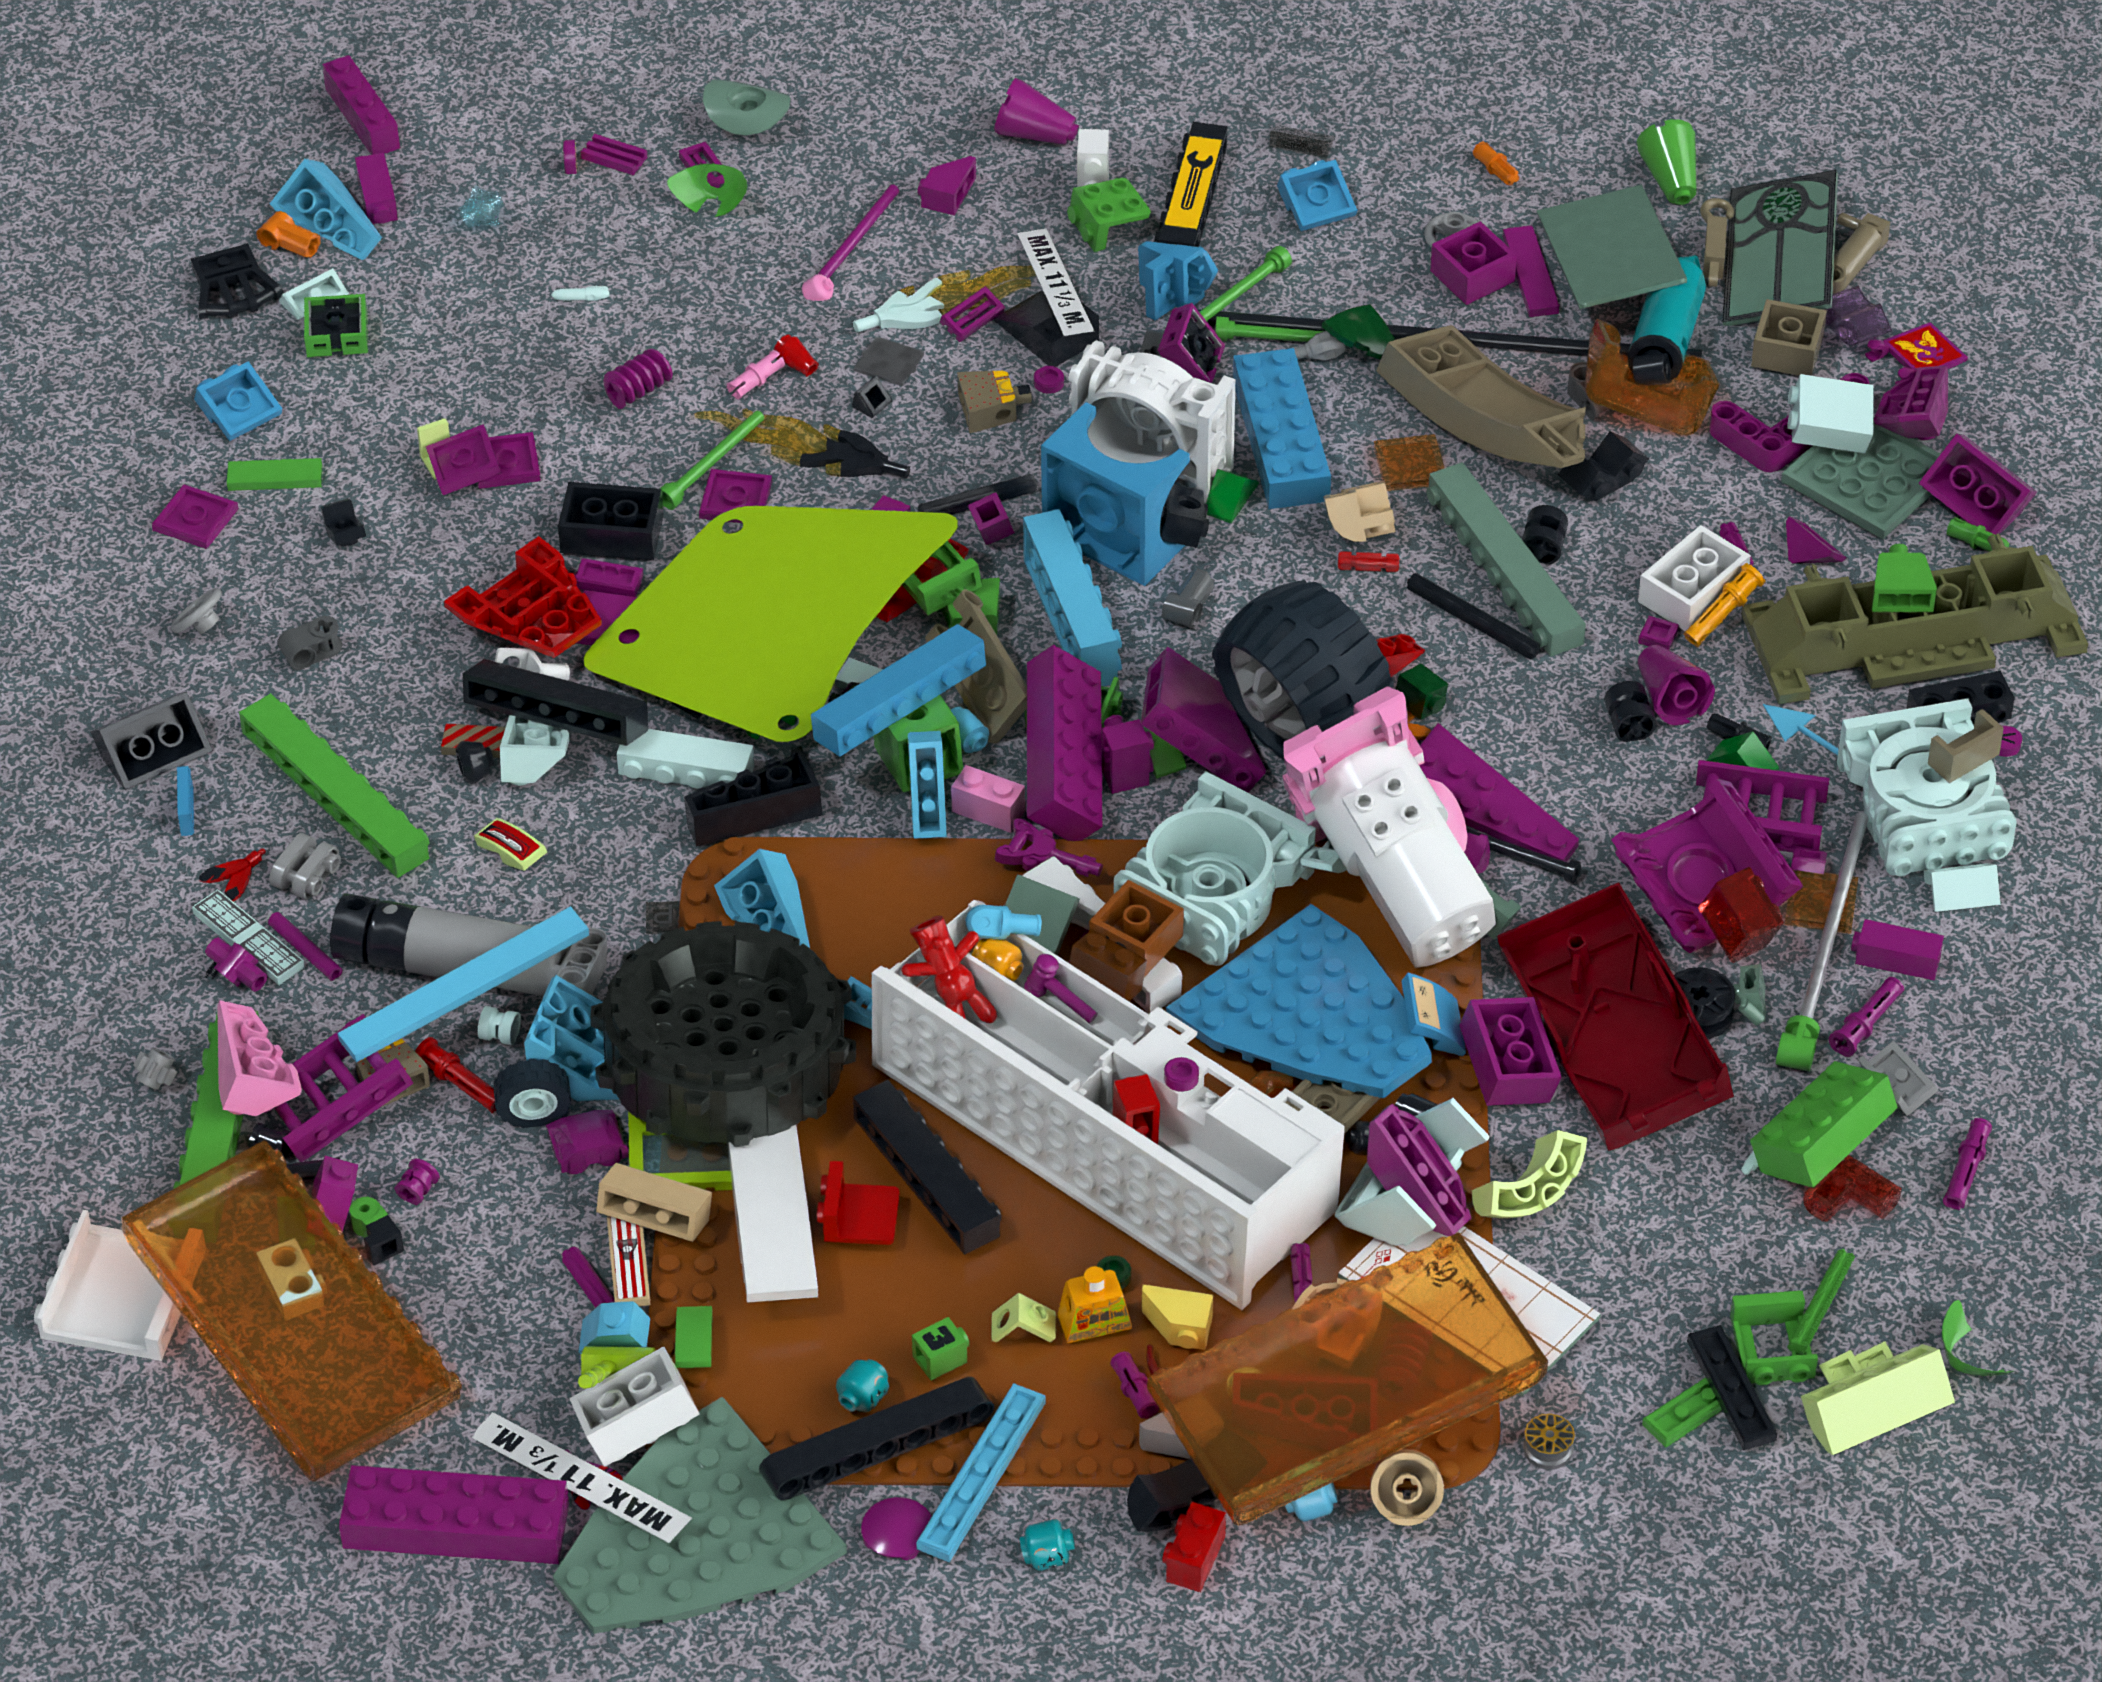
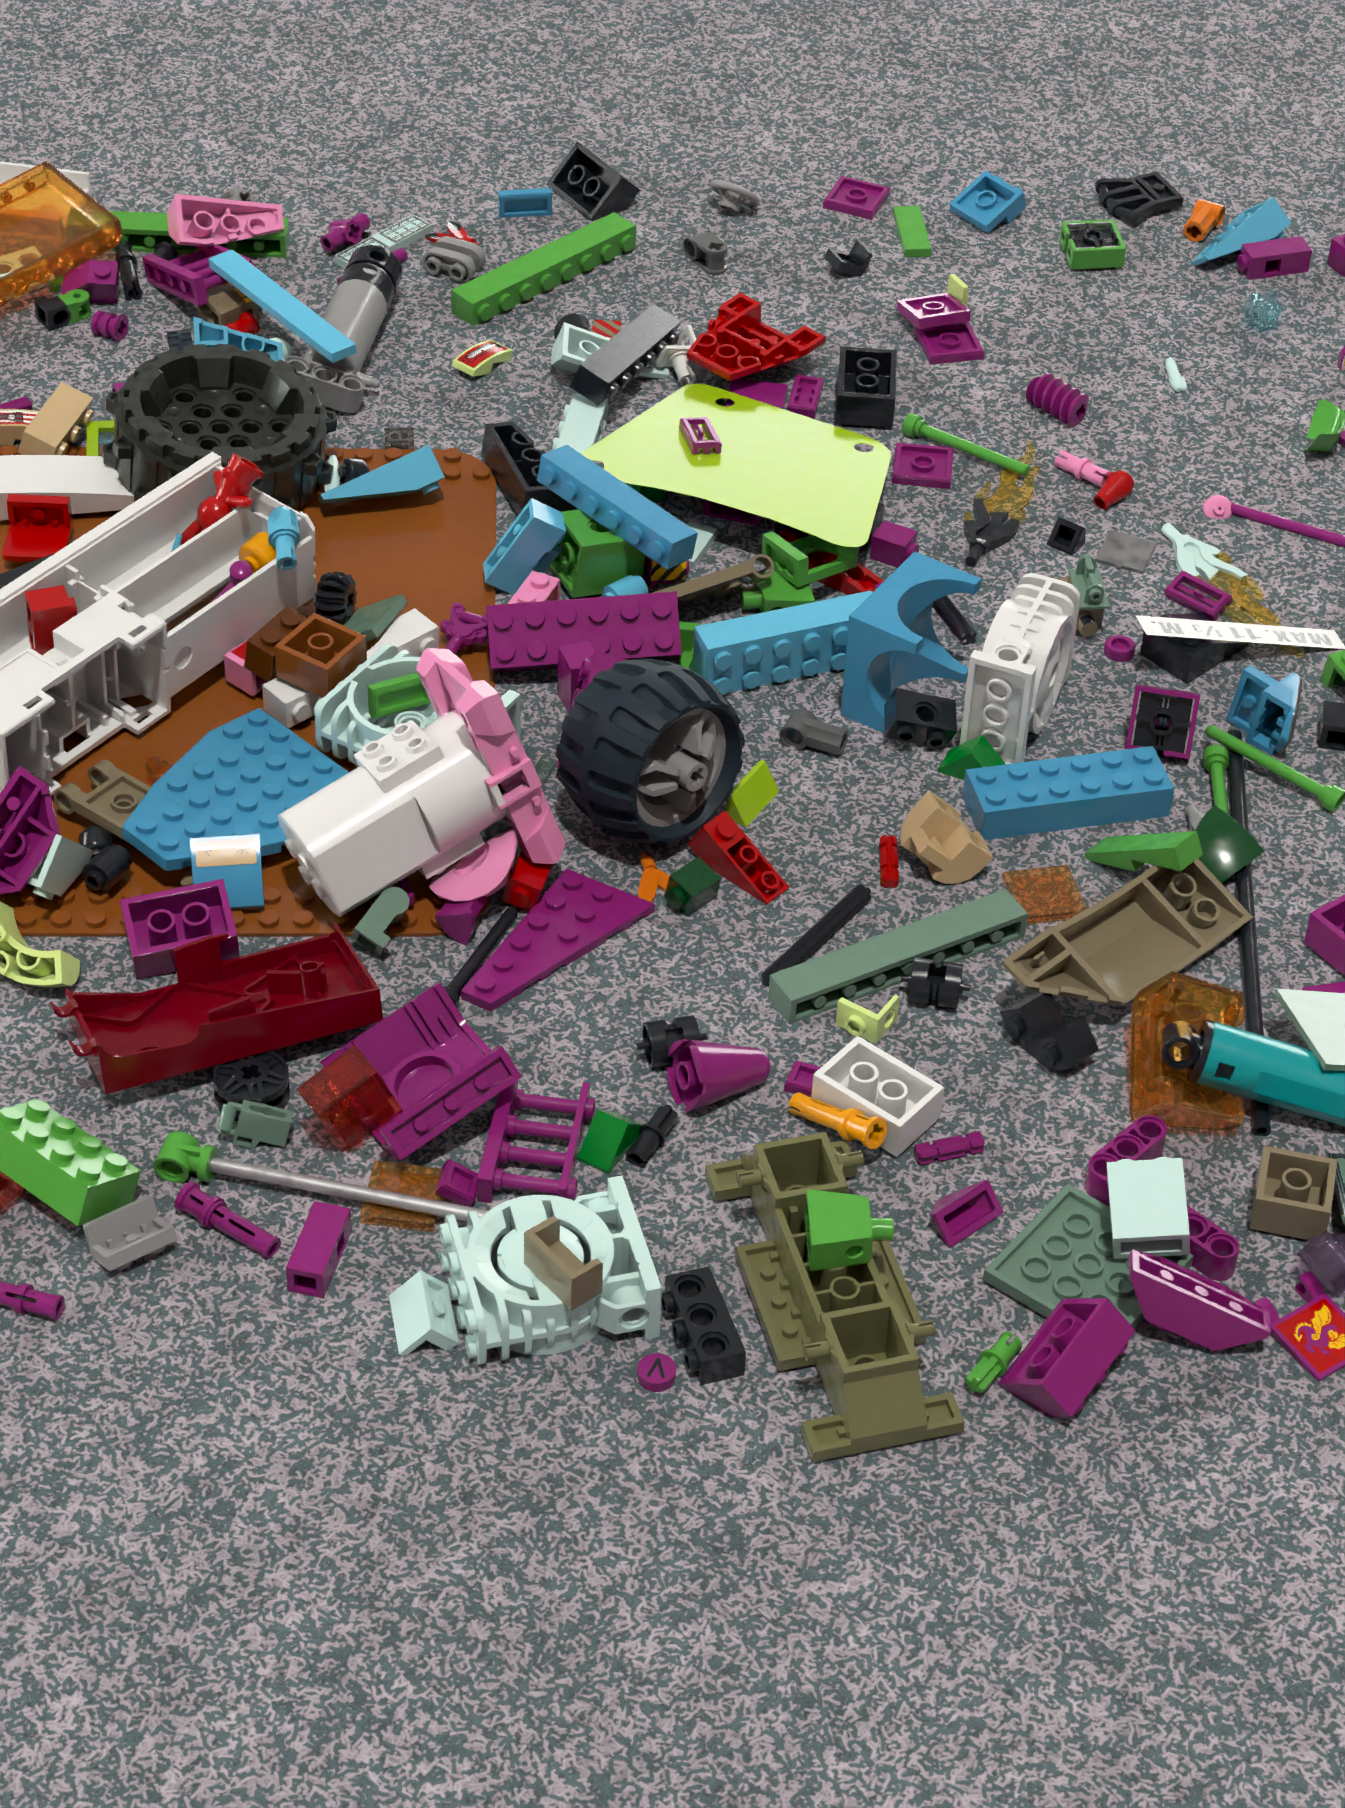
camera: 85 degrees right, 5 degrees down
(323, 285) = (1140, 239): light aqua slope -> none
(725, 642) = (694, 435): none -> tile
(1006, 372) = (1089, 584): none -> sand green hinge
(1177, 872) = (396, 695): none -> bright green tile
(1181, 1074) = (71, 628): magenta tile -> none
(1388, 368) = (1161, 849): none -> bright green slope
(1594, 587) = (864, 1022): none -> yellowish green bracket
(1791, 721) = (682, 1186): medium azure piece -> none

